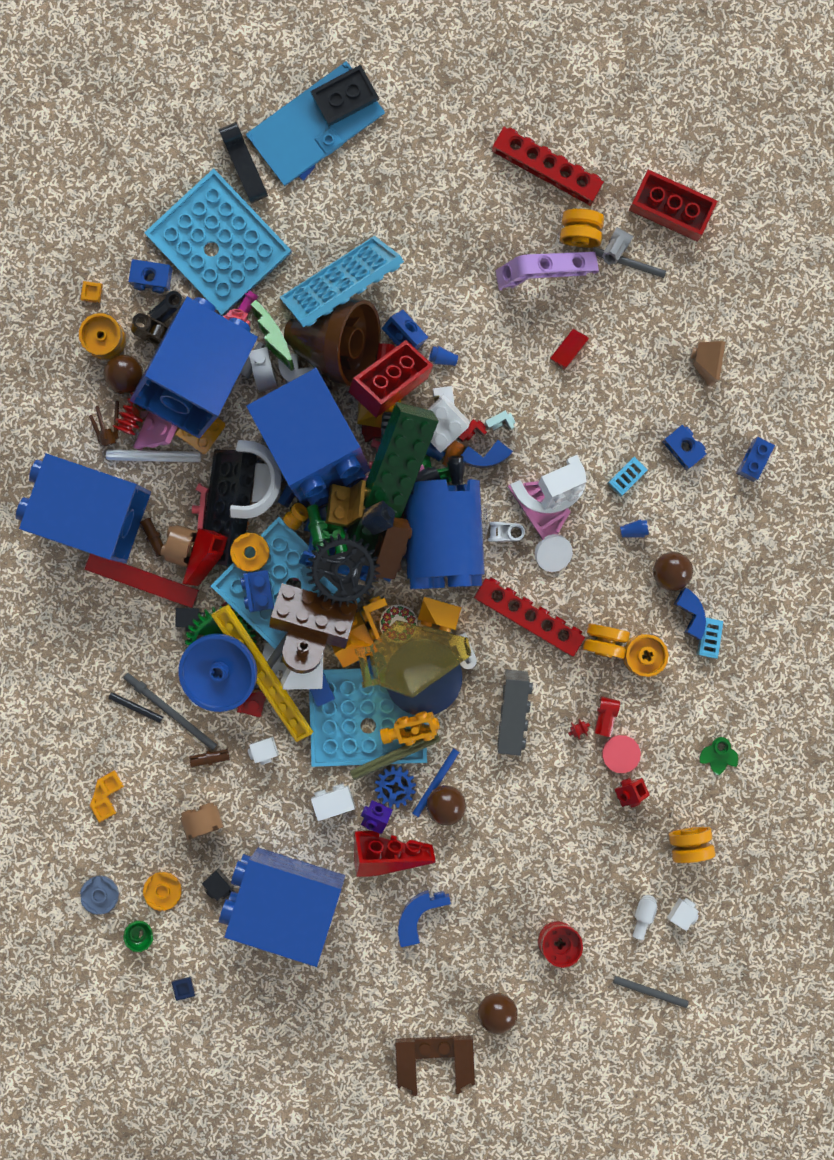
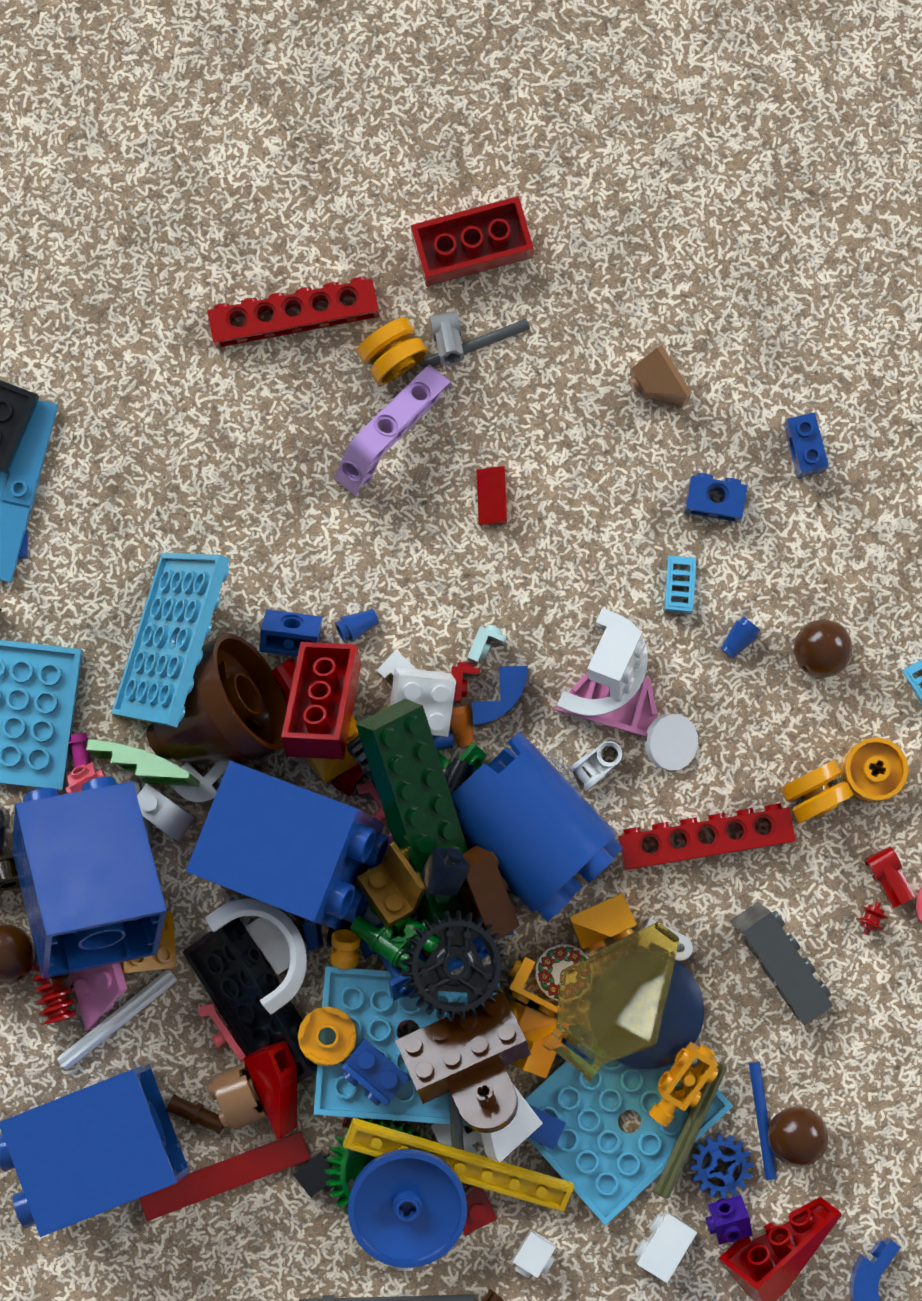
camera: 40 degrees left, 5 degrees down
(106, 436) = (43, 1043): reddish brown plant -> none
(456, 468) = (480, 738): black cone -> none
(690, 603) = (873, 668): blue brick -> none

